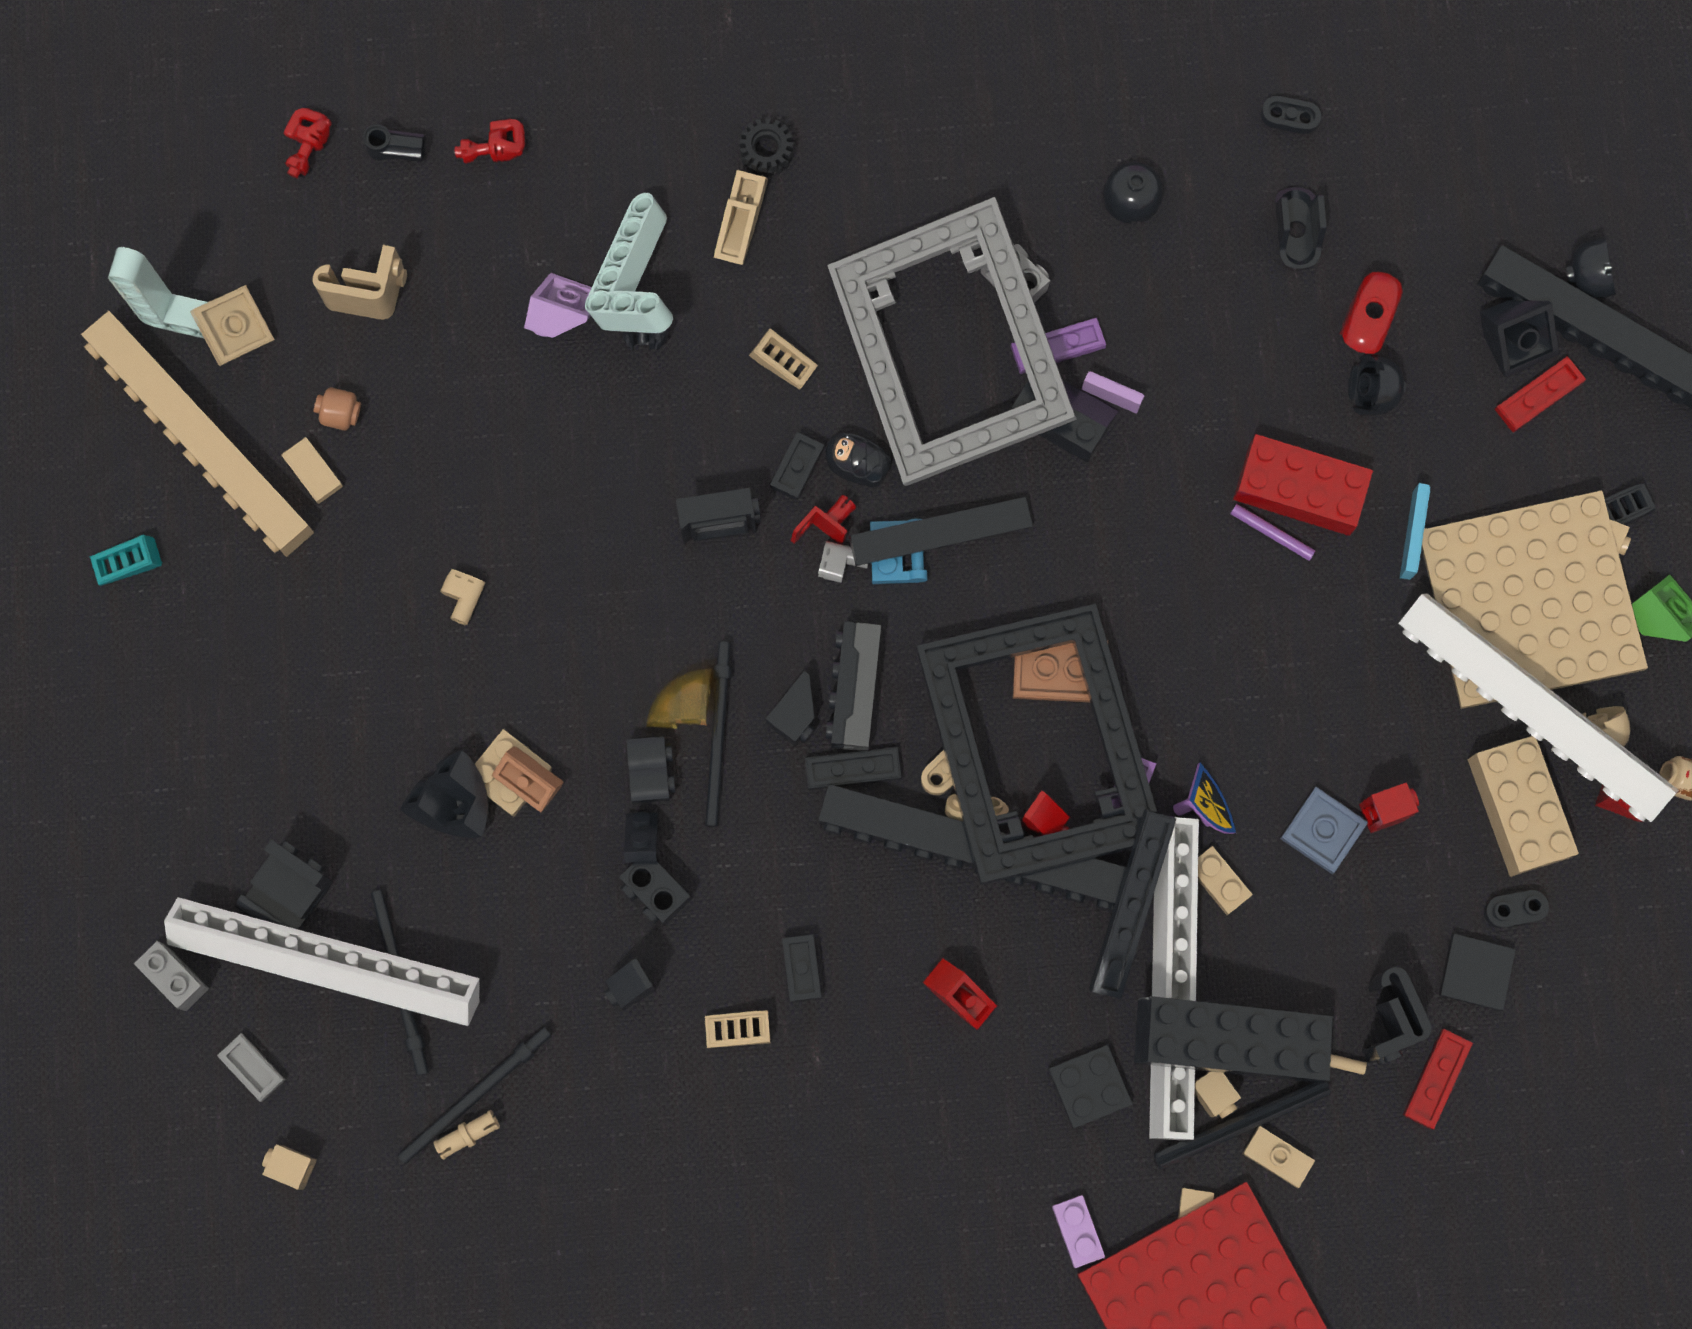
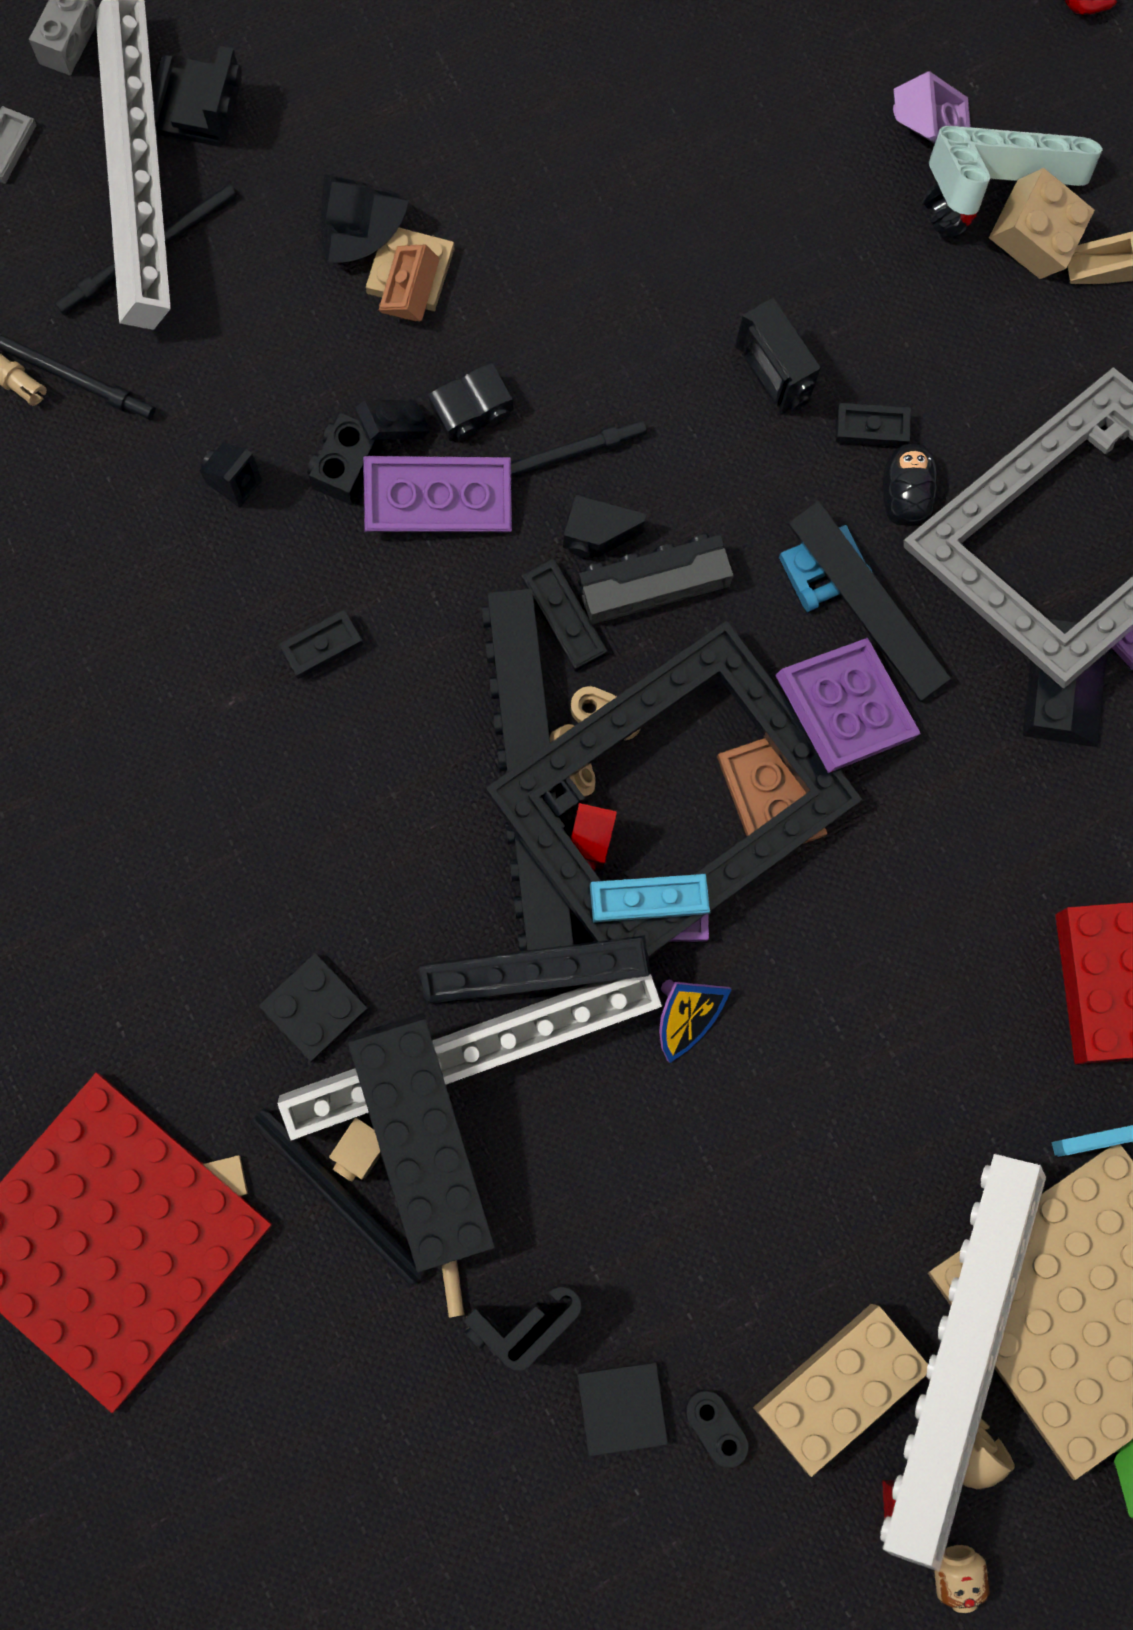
camera: 65 degrees right, 0 degrees up
(465, 590) = (586, 148): tan piece -> none
(682, 701) = (562, 406): clear yellow brick -> none
(690, 266) = (1041, 223): none -> tan brick
(717, 827) = (437, 494): none -> medium lavender tile
(764, 1037) = (242, 629): tan slope -> none
(767, 361) = (991, 337): tan slope -> none
(828, 522) = (825, 481): red bracket -> none
(834, 561) = (783, 506): light grey piece -> none
(960, 993) = (359, 822): red slope -> none
(1018, 582) = (847, 704): none -> medium lavender plate
(1078, 1231) = (146, 1056): lavender plate -> none
(1112, 392) = (1116, 728): lavender tile -> none
(1114, 794) = (649, 898): none -> medium azure tile
(1221, 881) = (606, 1065): tan plate -> none
(1273, 532) = (1037, 973): medium lavender bar -> none
(1278, 1157) = (315, 1252): tan plate -> none
(1324, 830) = (714, 1164): sand blue tile -> none
(1389, 807) = (771, 1226): red brick -> none
(1437, 1079) = (478, 1407): red tile -> none

